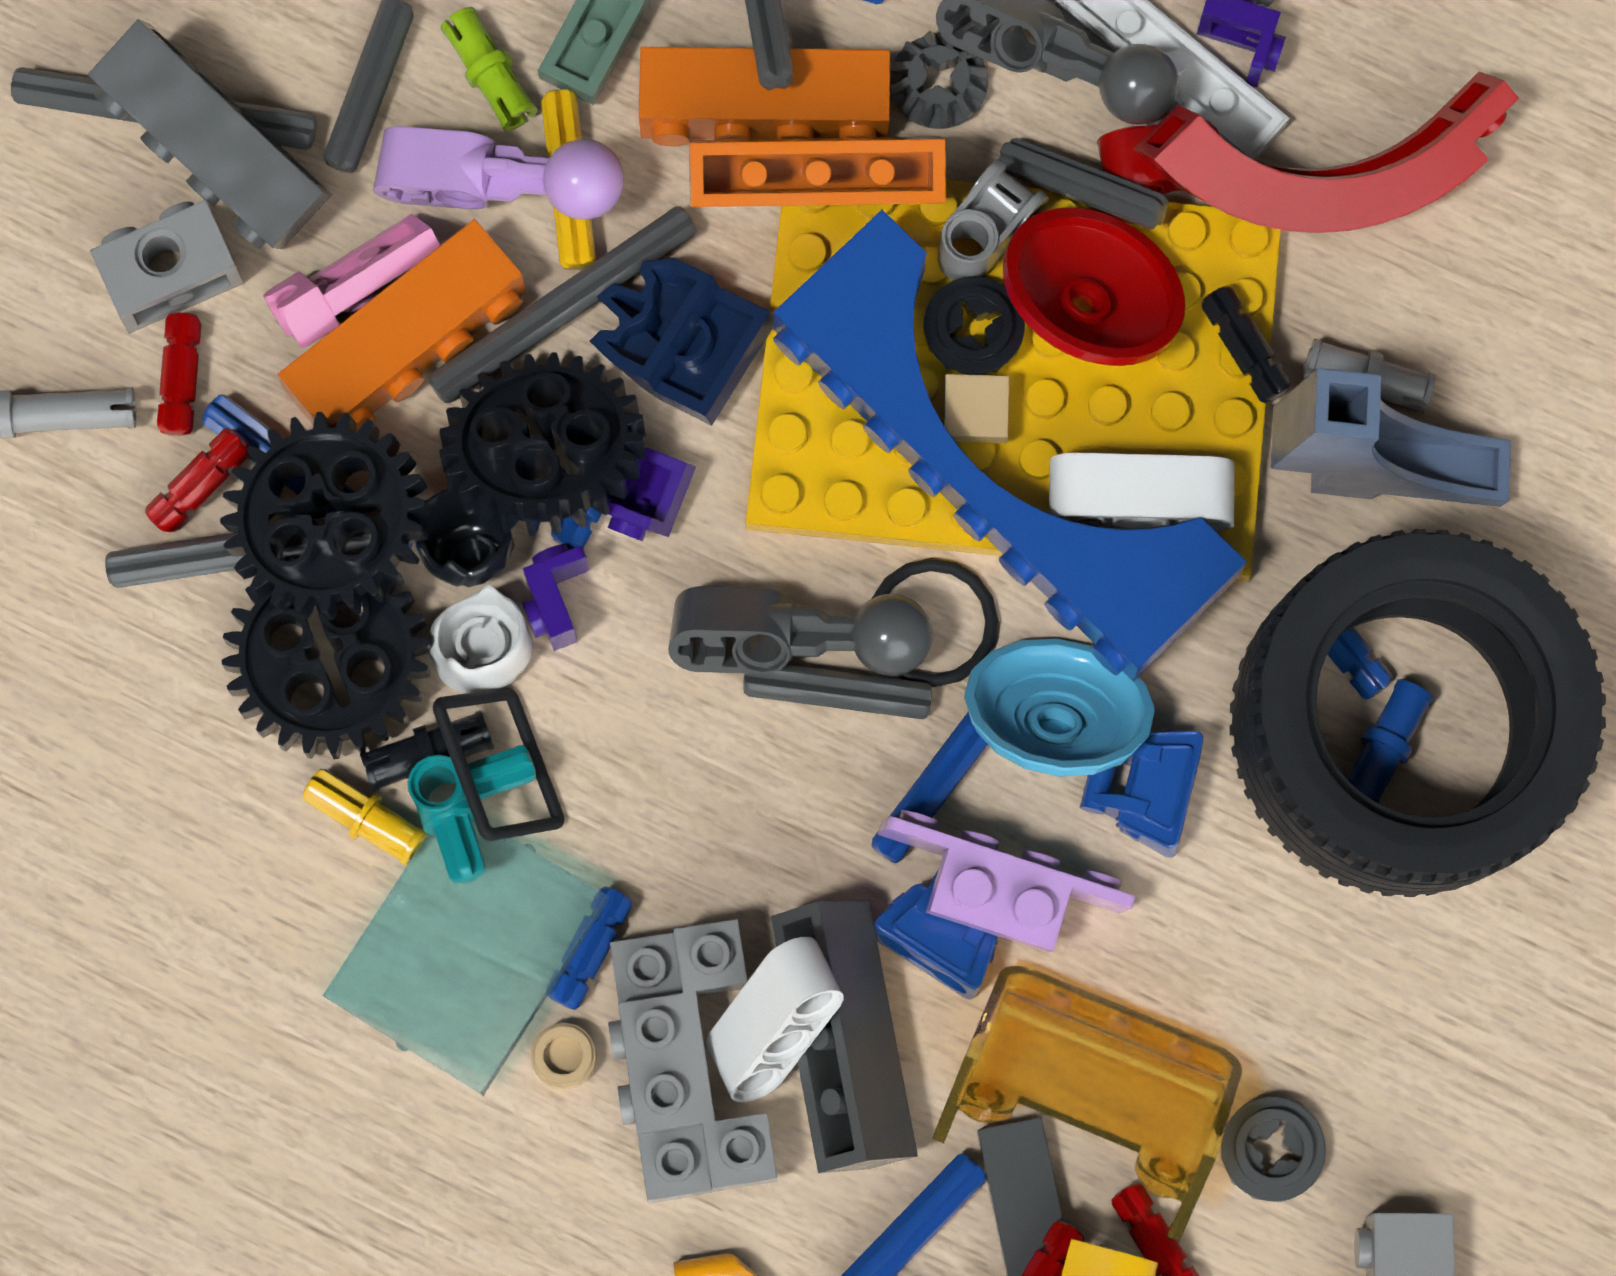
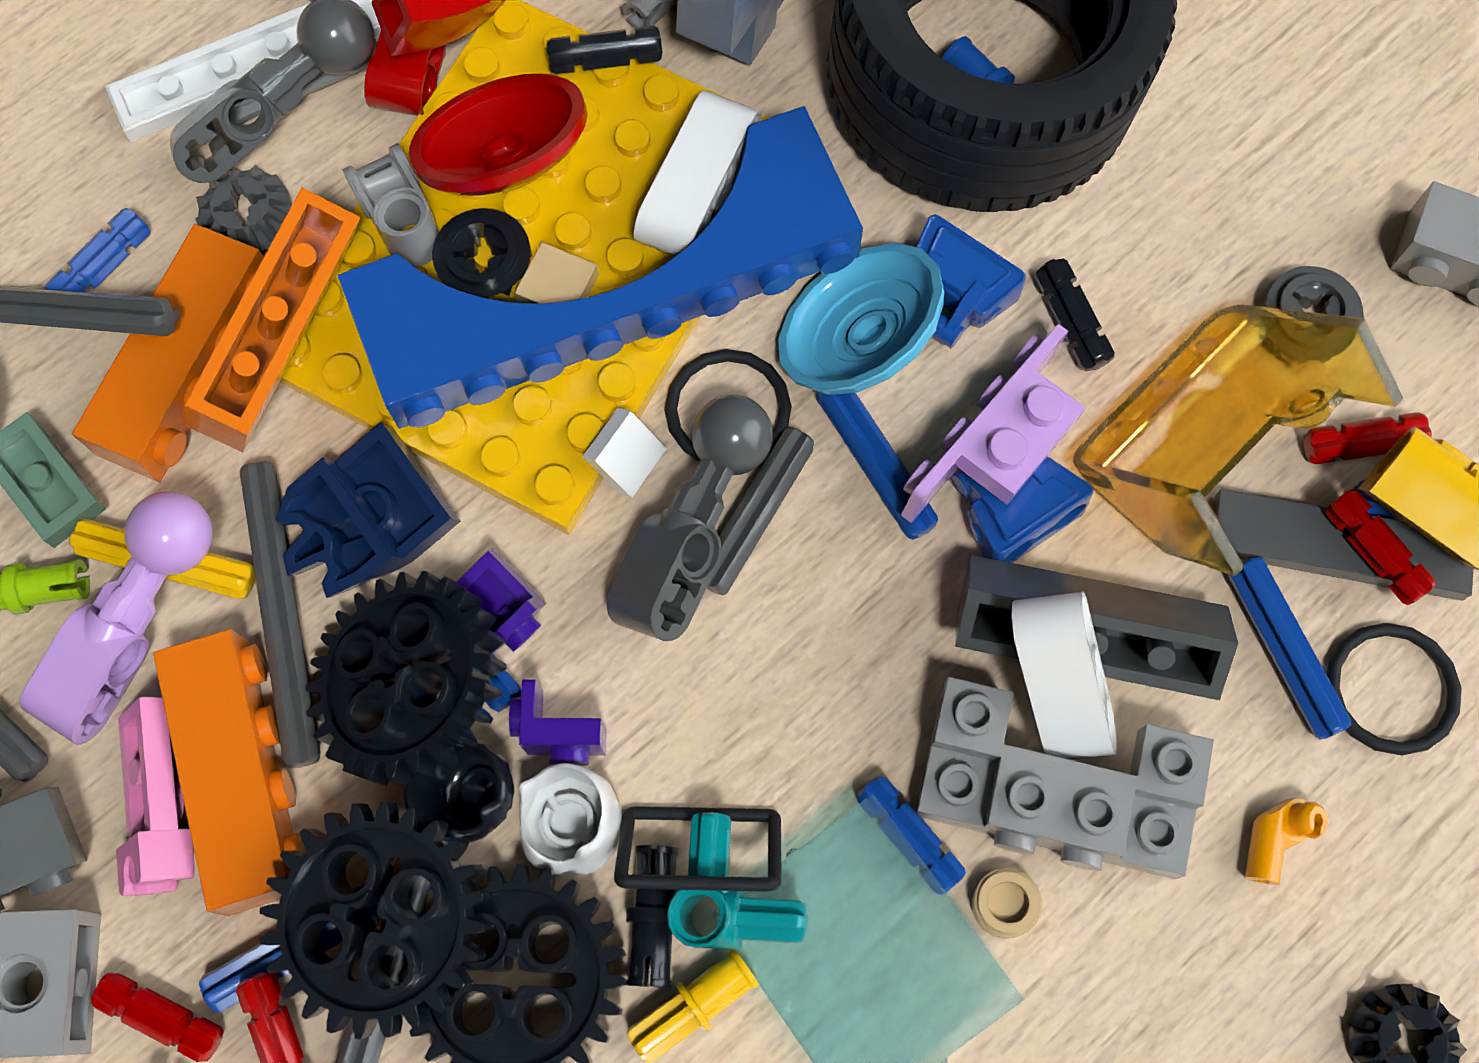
camera: 65 degrees left, 5 degrees down
(839, 544) = (624, 452): none -> white tile
(1084, 183) = (402, 115): dark grey axle -> none
(1169, 915) = (1074, 314): none -> black axle

